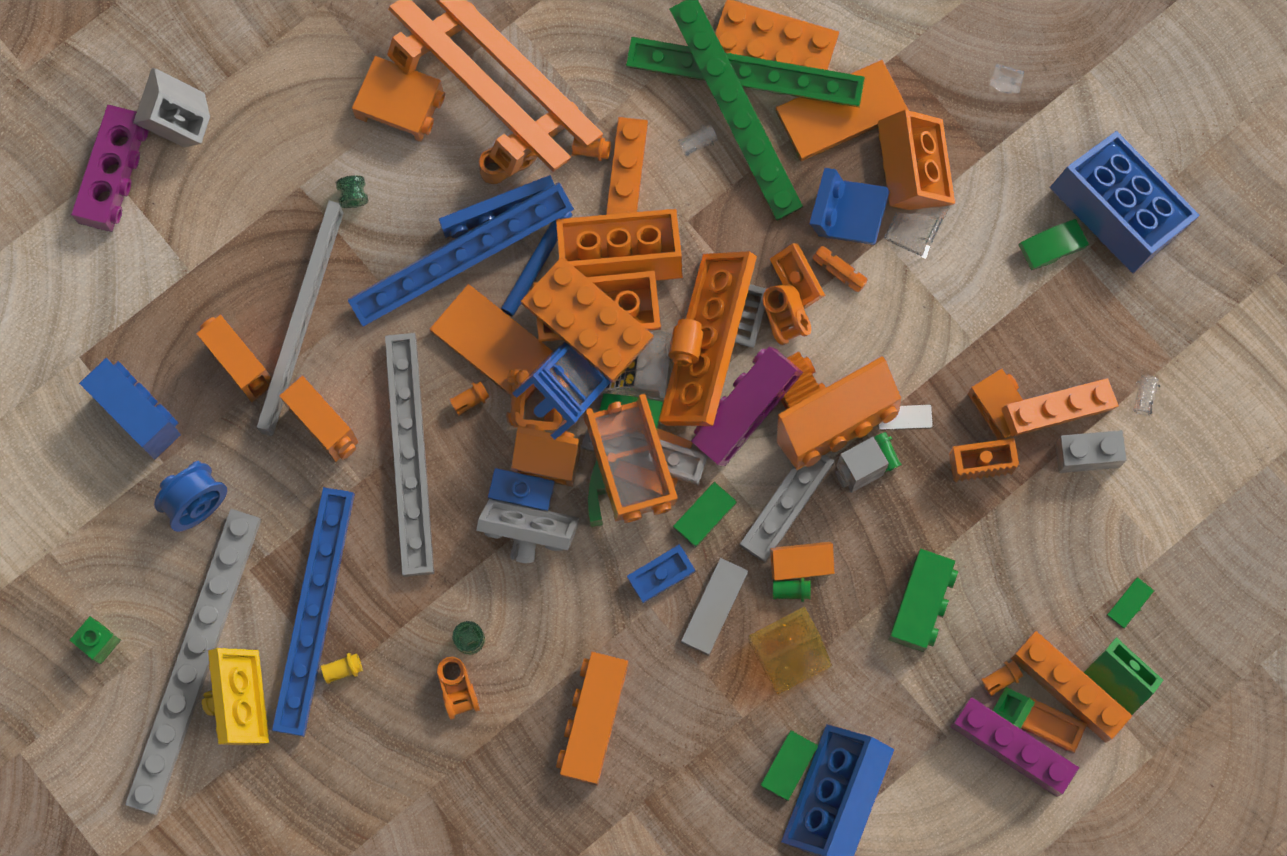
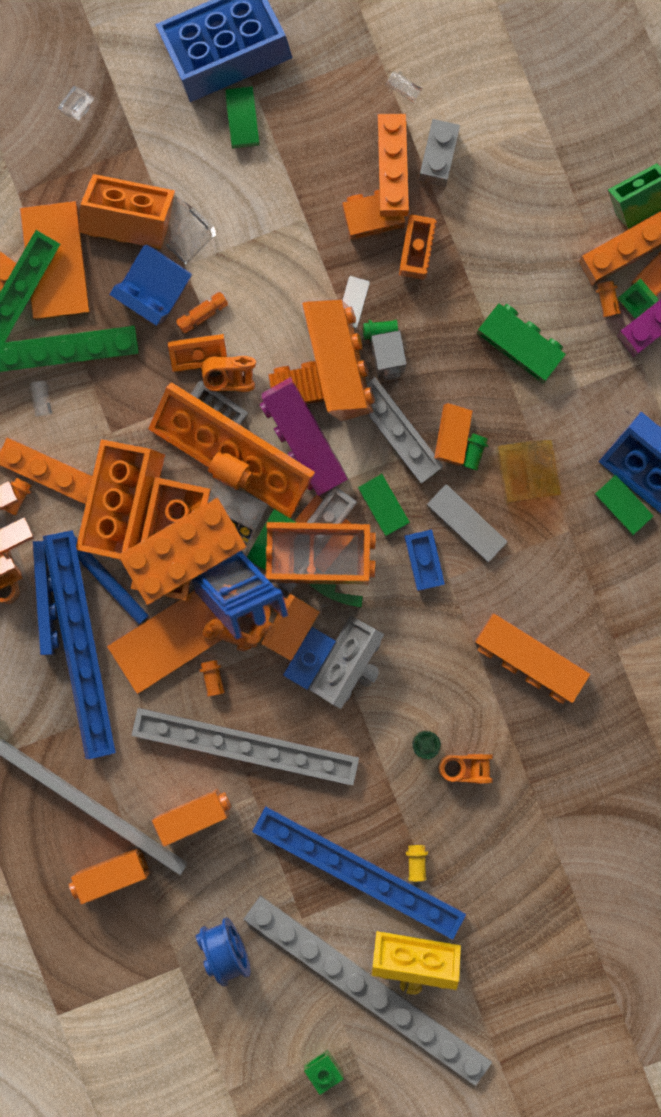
camera: 70 degrees left, 10 degrees up
(132, 407) = (125, 981): blue brick -> none
(1130, 603) = (578, 166): green window -> none

